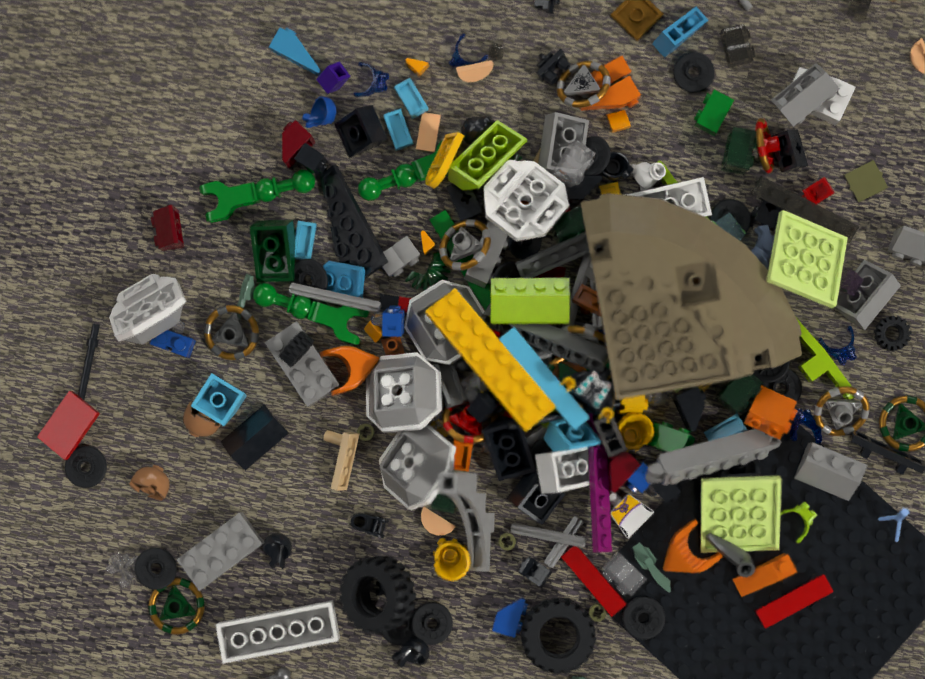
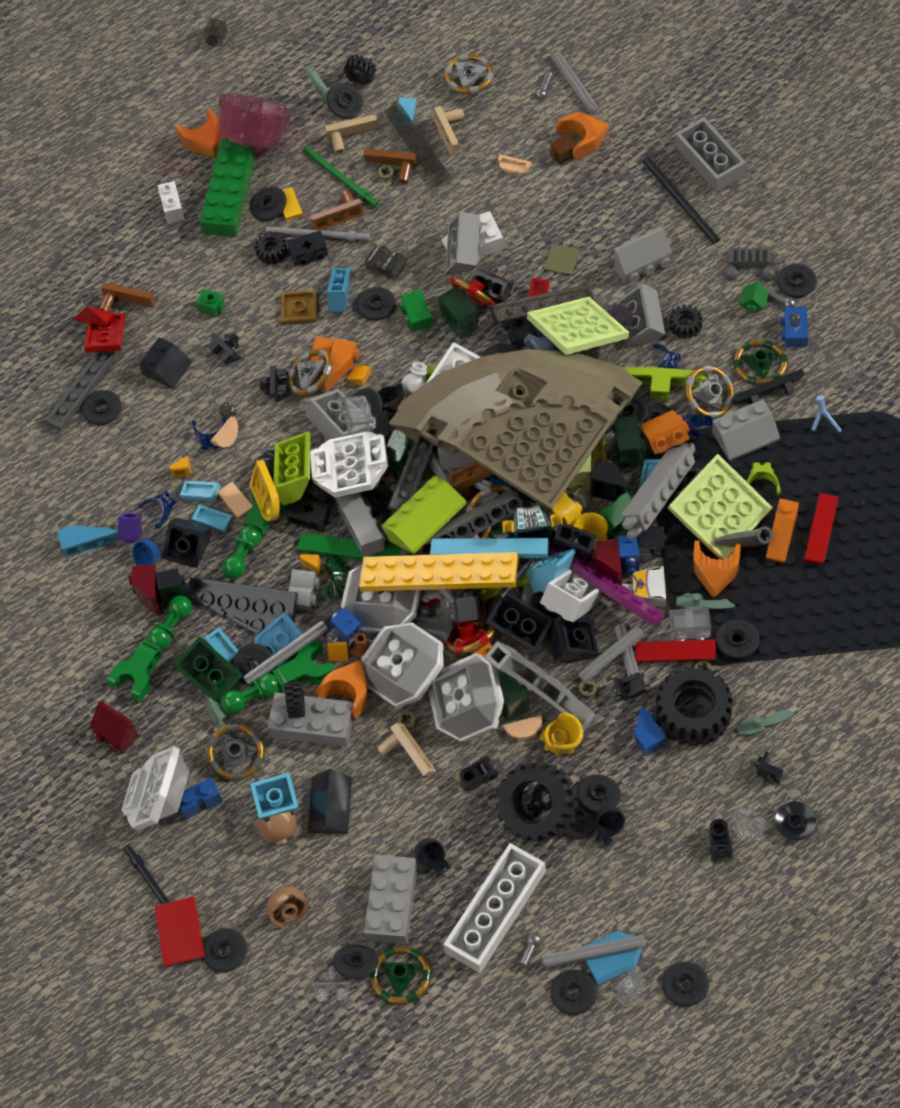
camera: 45 degrees left, 25 degrees down
(464, 245) = (340, 532): light grey piece -> none

